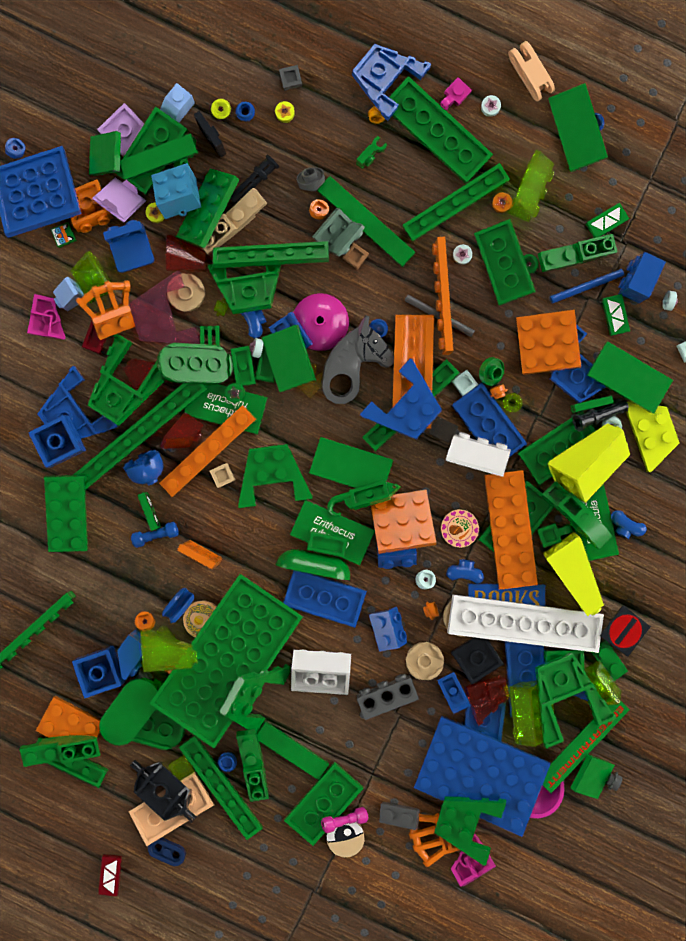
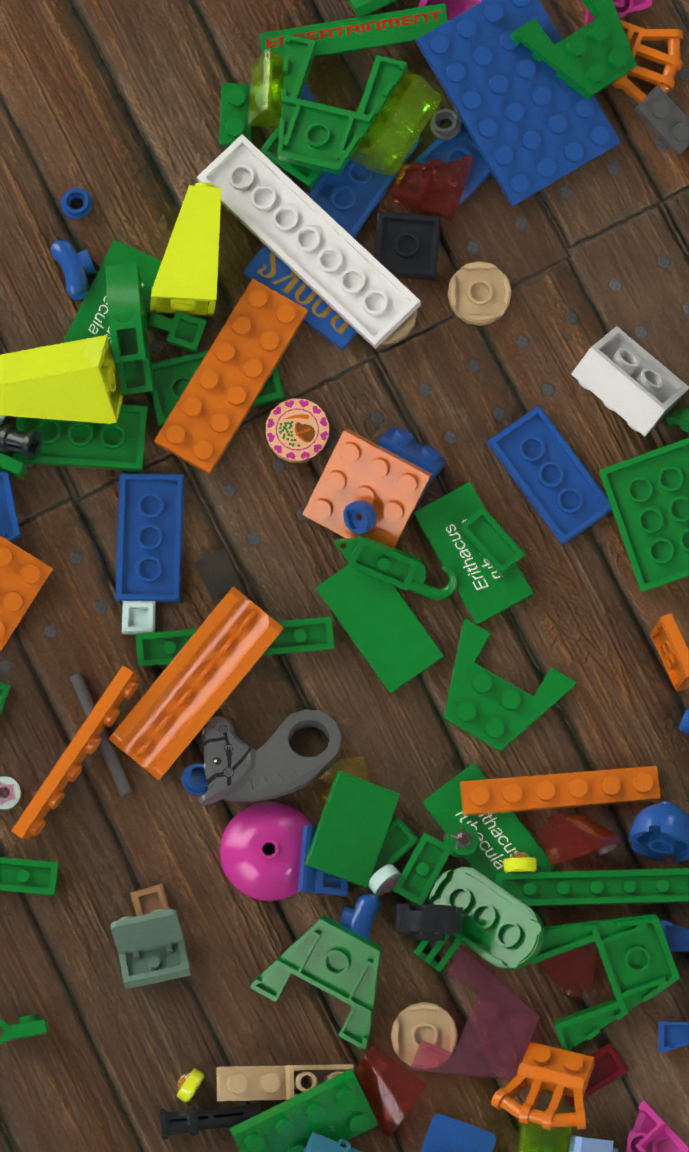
camera: 140 degrees left, 10 degrees down
(199, 402) = (519, 863): none -> neon yellow tile
(219, 339) = (429, 921): none -> black piece
(220, 307) = (391, 974): clear neon green plate -> none
(222, 475) = (564, 742): tan plate -> none
(271, 254) = (266, 991): green plate -> none
(274, 187) = (189, 1084): none -> neon yellow tile
(310, 179) = (129, 1057): dark grey plate -> none
(314, 564) = (531, 529): green brick -> none
(319, 209) = (151, 1007): orange tile -> none
(374, 228) = (98, 942): green tile -> none
(384, 705) = (558, 269): dark grey brick -> none
(388, 629) = (496, 369): blue bracket -> none
(397, 507) = (359, 516): none -> blue tile
(413, 411) = (241, 625): blue wing -> none
(425, 579) = (395, 397): light aqua tile -> none
(431, 610) = (419, 351): orange plate -> none
(453, 693) = (472, 222): blue slope -> none
(465, 570) = (333, 368): blue piece -> none
(478, 454) = (196, 503): white slope -> none
(491, 371) = (91, 603): green plate -> none
(498, 391) = (103, 571): orange plate -> none
(509, 732) = (445, 116): none -> dark grey plate
(518, 400) = (95, 532): clear neon green plate -> none
(625, 630) = (185, 135): piece -> none
(656, 558) = (74, 195): none -> blue plate

